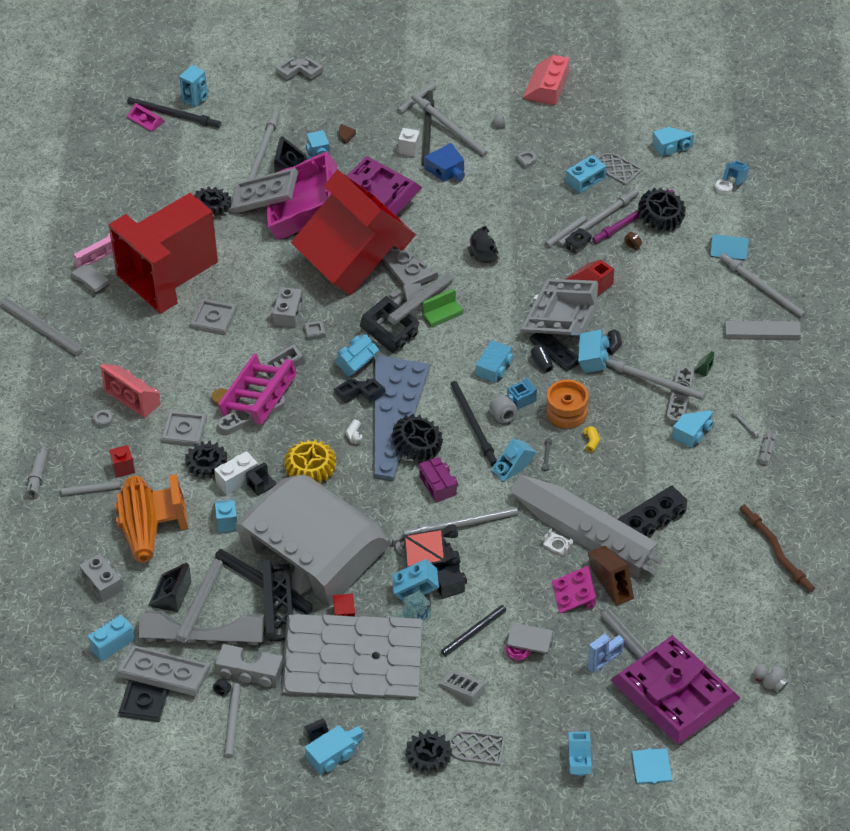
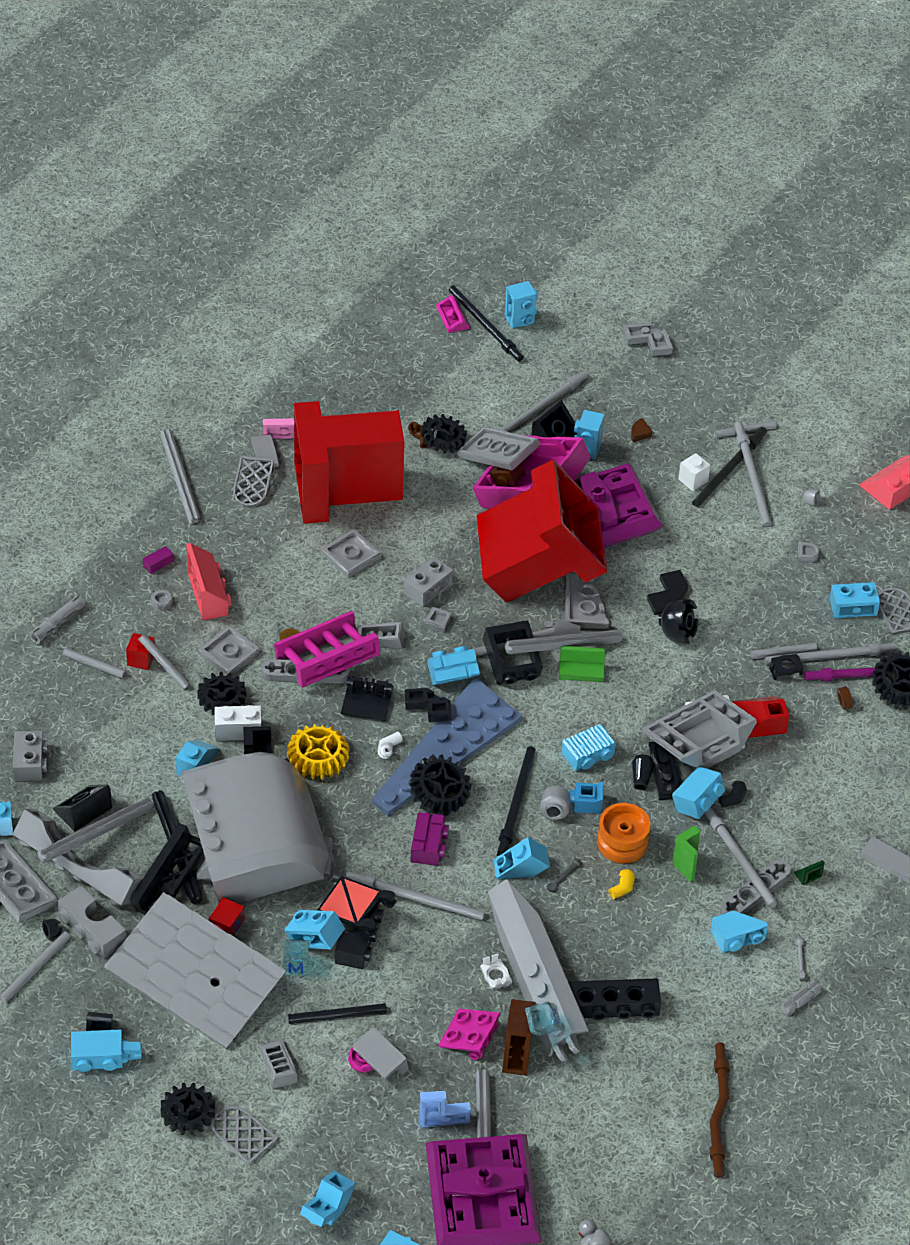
camera: 30 degrees right, 0 degrees up
(76, 392) = (158, 560): none -> magenta piece
(93, 285) = (251, 486): none -> light grey window
(142, 511) = (119, 709): orange piece -> none
(148, 458) = (163, 660): none -> light grey bar
(284, 208) = (507, 478): none -> reddish brown brick
(312, 408) = (367, 698): none -> black hinge
(445, 163) = (714, 513): blue torso -> none
(461, 234) = (675, 588): none -> black tile
(622, 395) = (686, 852): none -> bright green panel
(627, 550) = (543, 1019): none -> clear light blue brick

